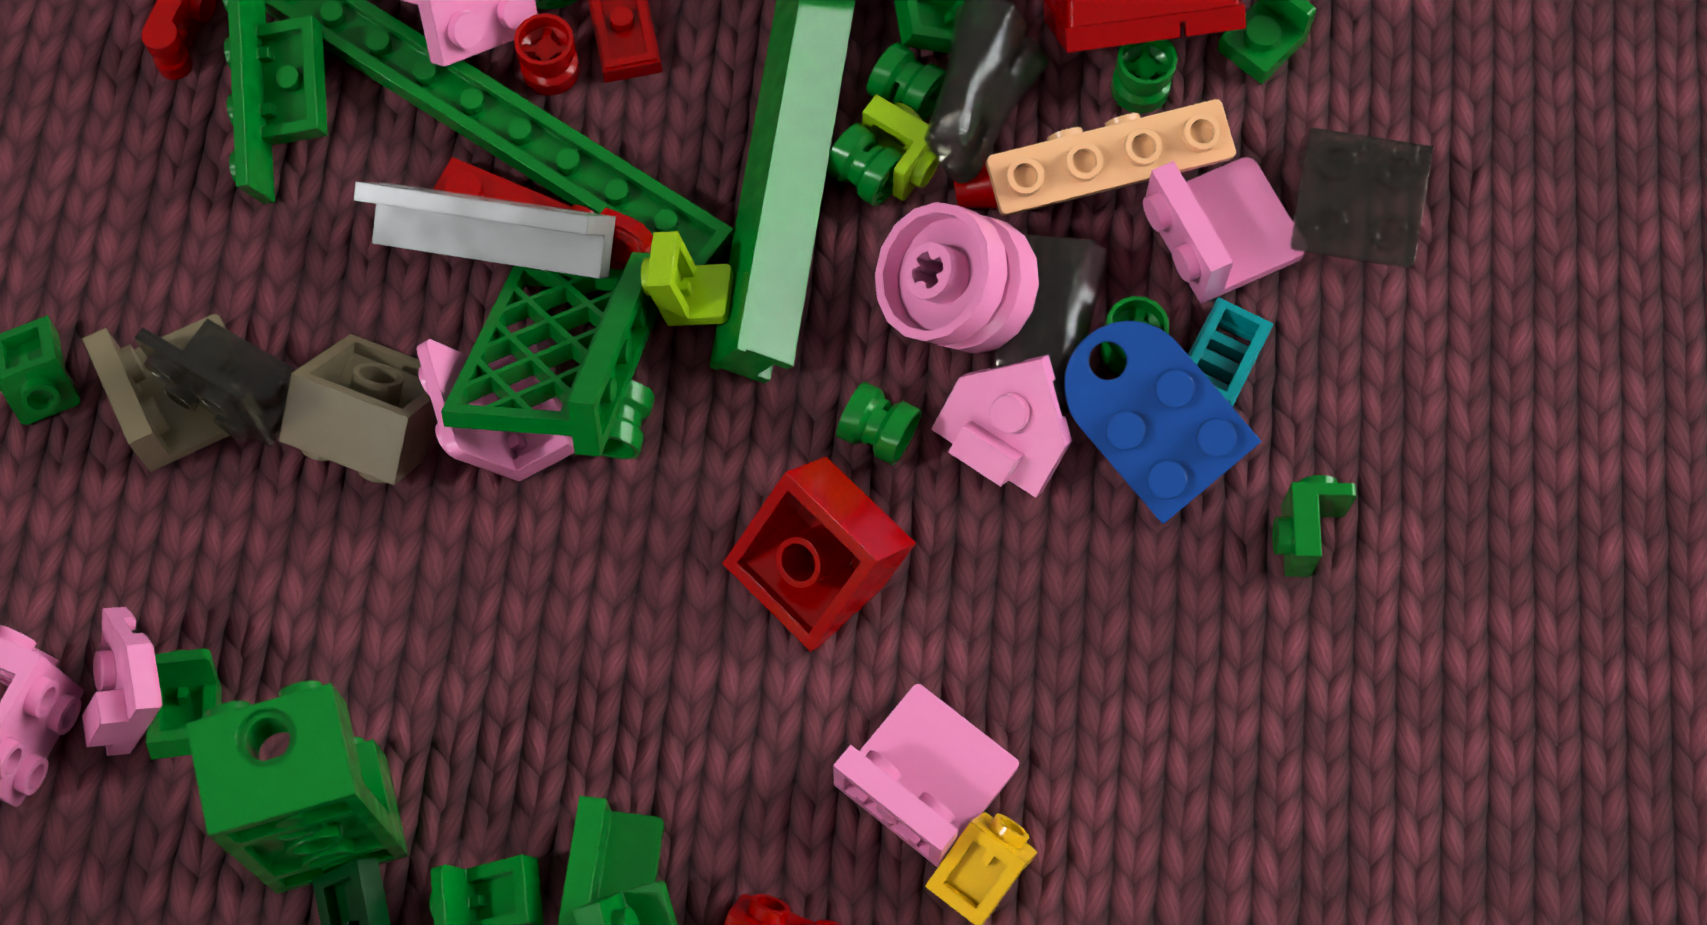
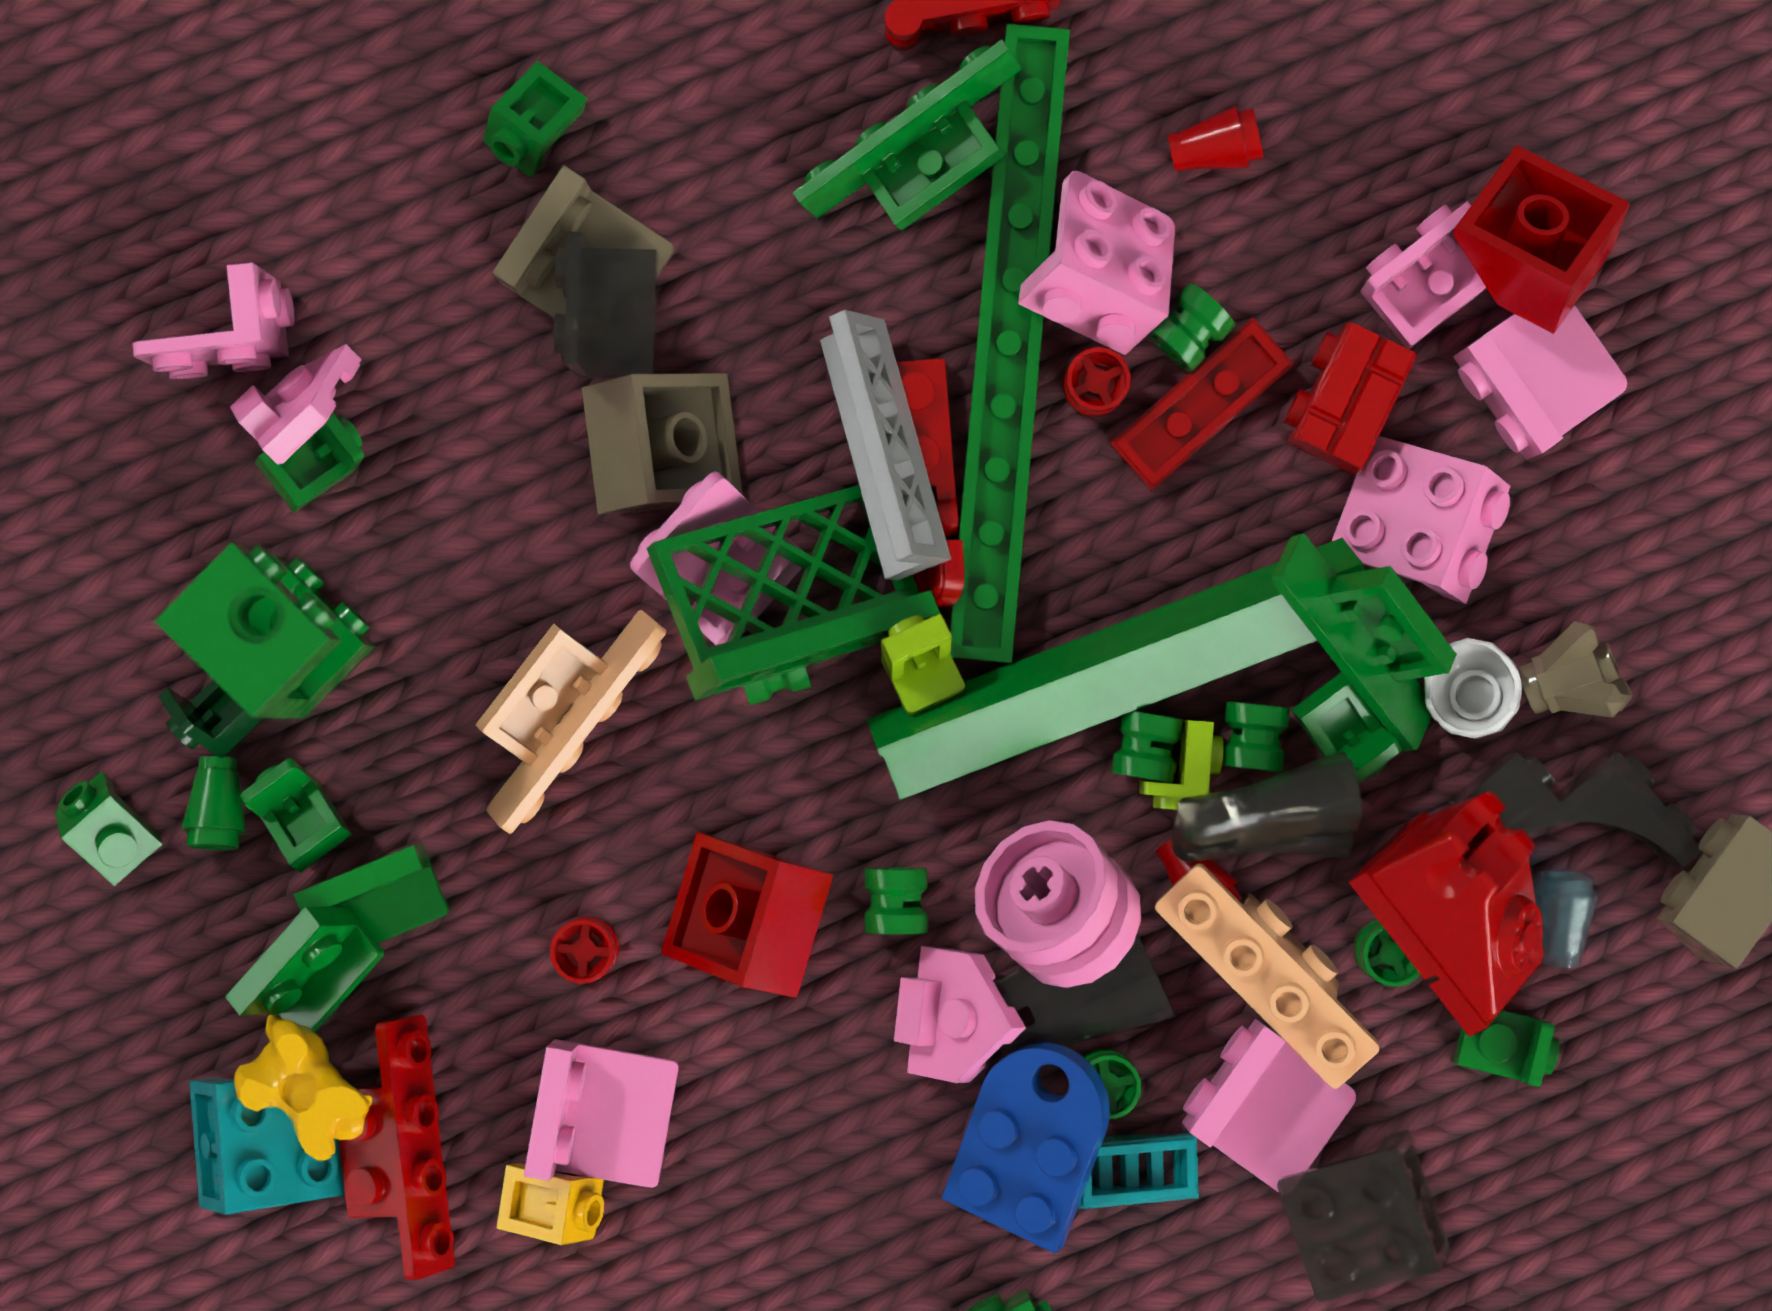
camera: 55 degrees right, 20 degrees up
(538, 615) = (556, 705): none -> light nougat bracket
(770, 693) = (575, 953): none -> red wheel

